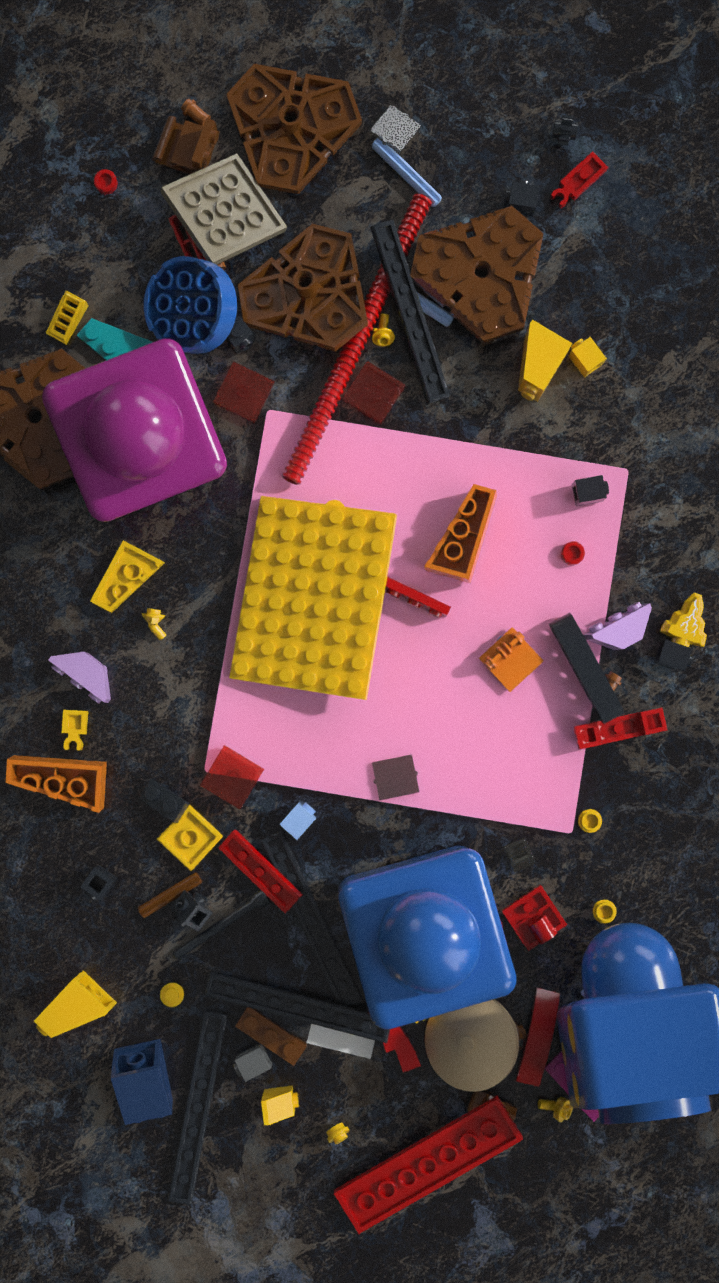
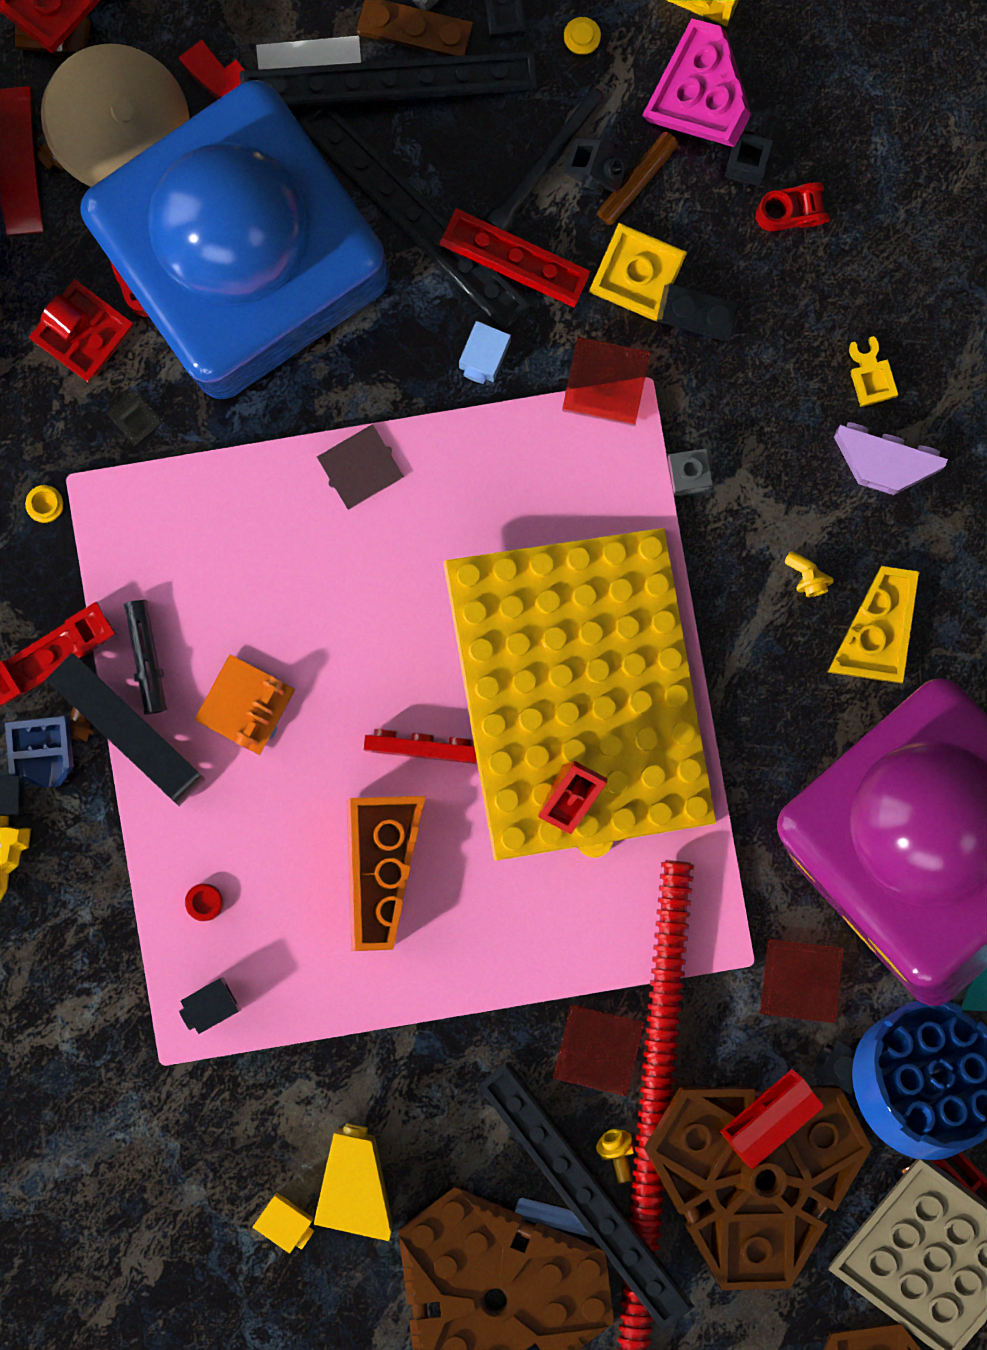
camera: 165 degrees right, 0 degrees up
(66, 779) = (854, 292): orange wedge -> none
(79, 843) = (800, 207): none -> red piece
(111, 935) = (701, 88): none -> dark pink plate
(202, 705) = (689, 472): none -> dark grey brick
(288, 314) = (772, 1119): none -> red piece
(339, 534) = (571, 796): none -> red slope
(562, 679) = (152, 701): none -> black pin
(621, 629) = (90, 810): lavender slope -> none
(639, 675) = (40, 750): none -> dark blue slope

